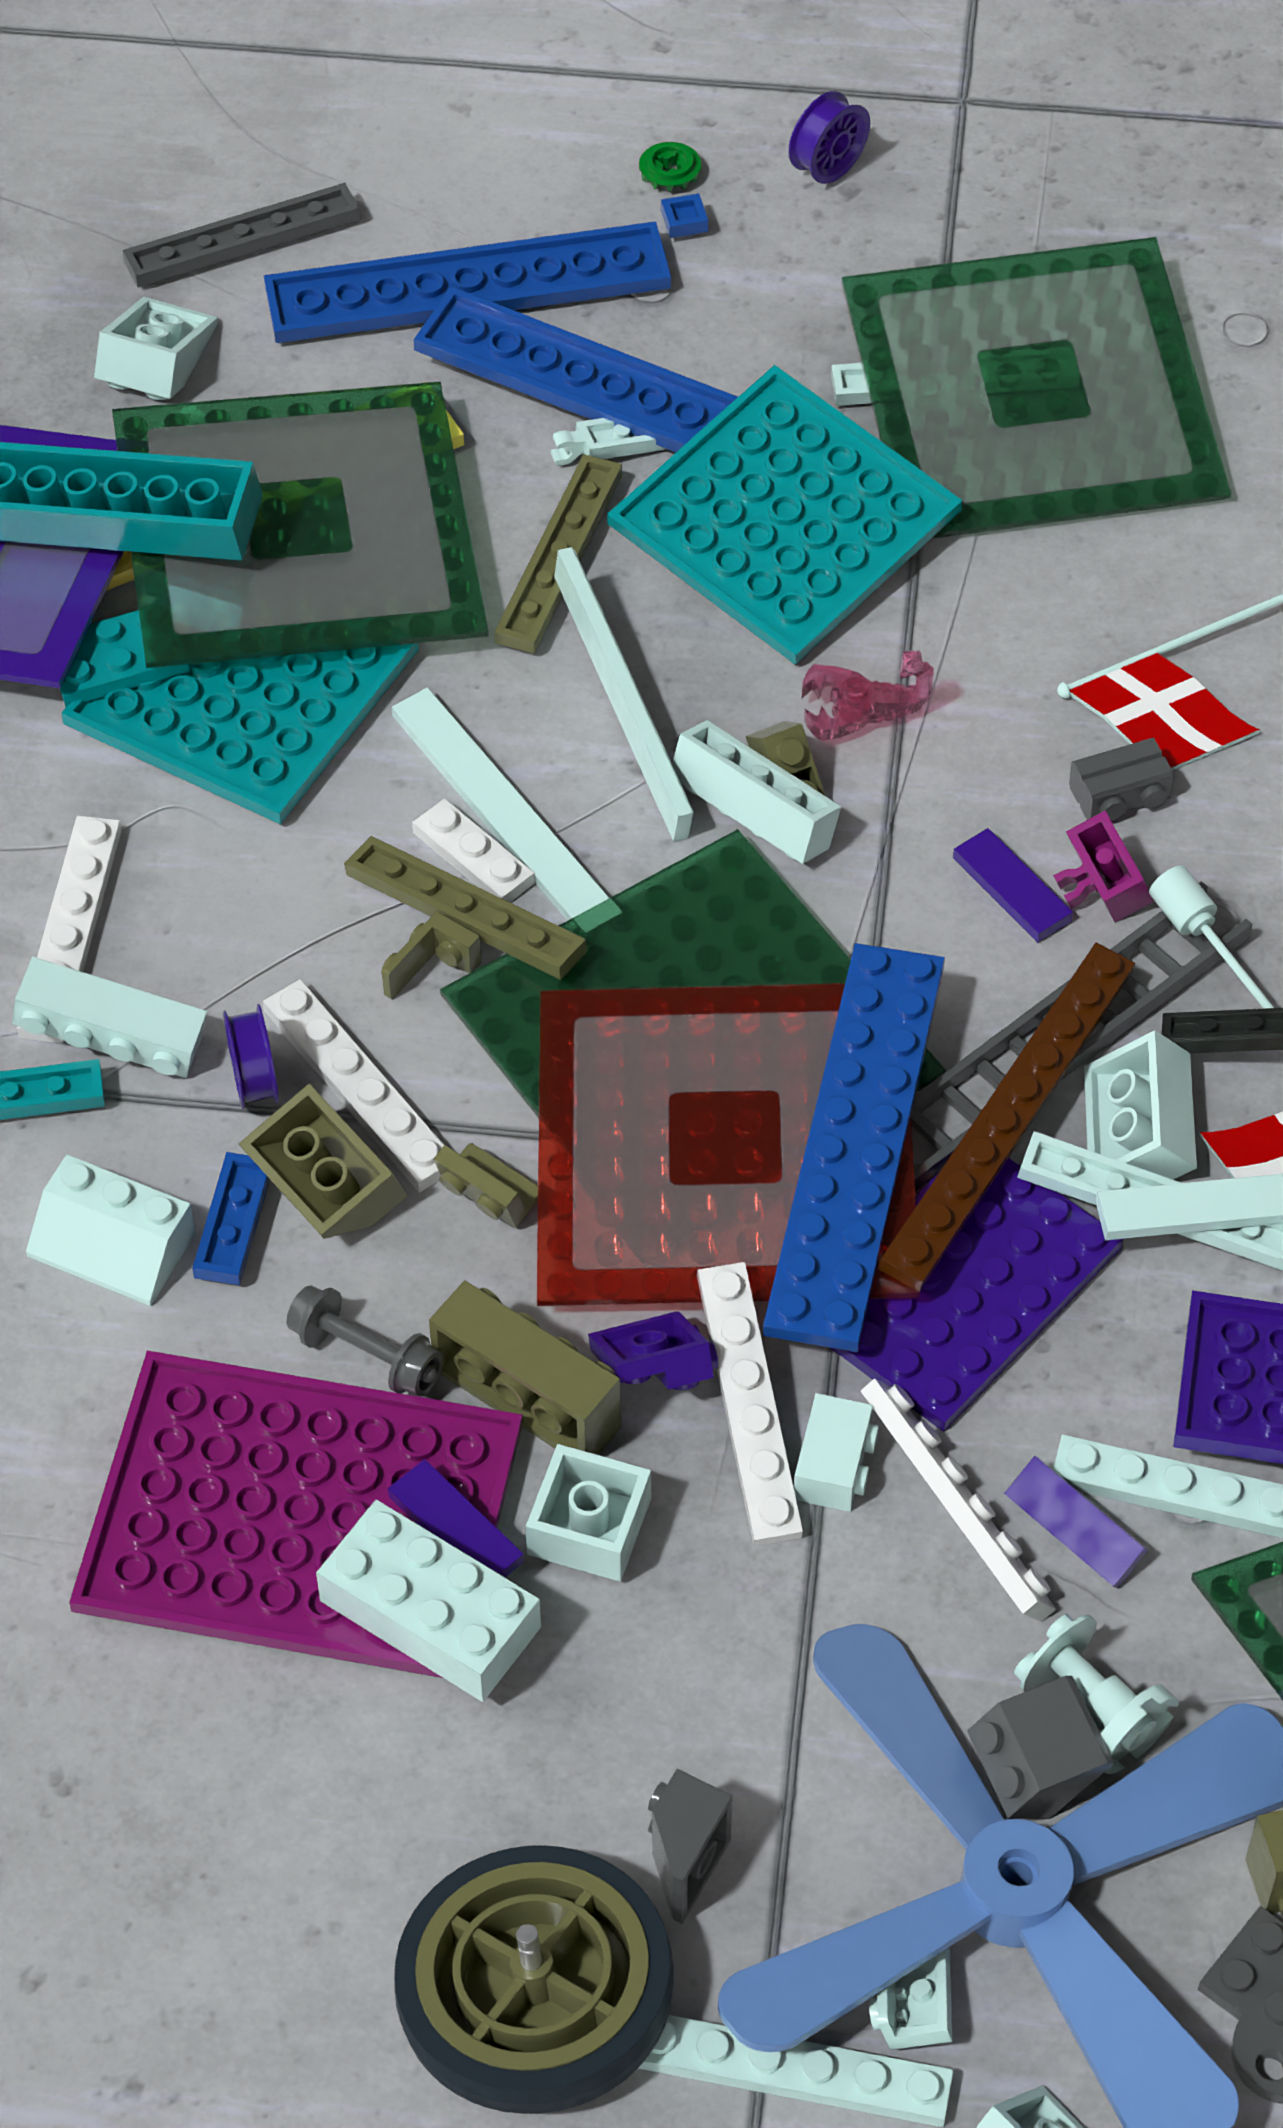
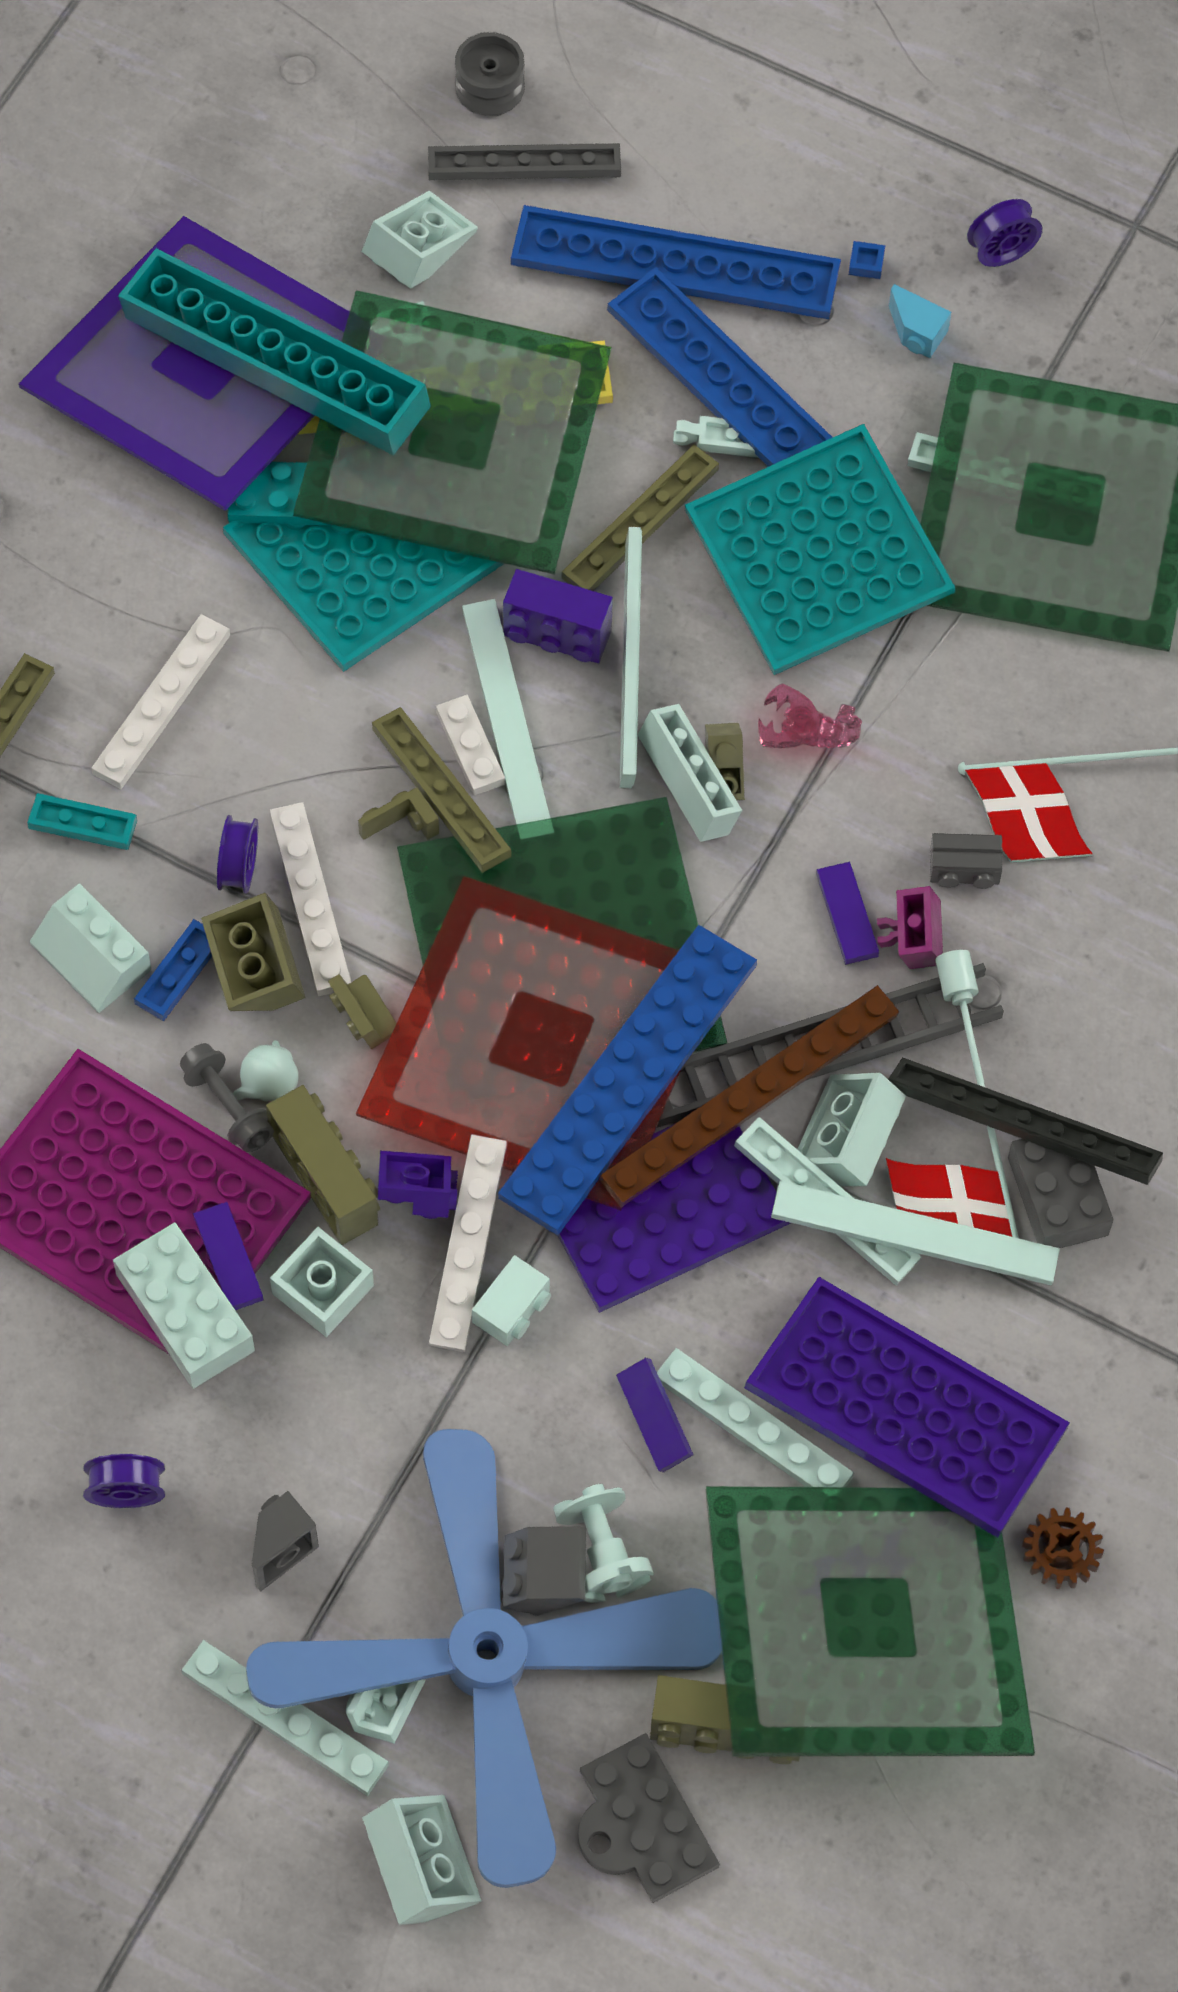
camera: 20 degrees right, 10 degrees up
(109, 1017) = (153, 786): light aqua brick -> none
(161, 156) = (489, 73): none -> dark grey wheel
(402, 1297) = (267, 1073): none -> light aqua hair
(446, 1839) = (124, 1481): none -> dark purple wheel
(516, 675) = (557, 616): none -> dark purple brick
(534, 1979) = (140, 1593): olive wheel -> none
(665, 156) = (878, 199): green gear -> none
(772, 256) = (918, 321): none -> medium azure slope
(969, 1511) = (579, 1365): white plate -> none

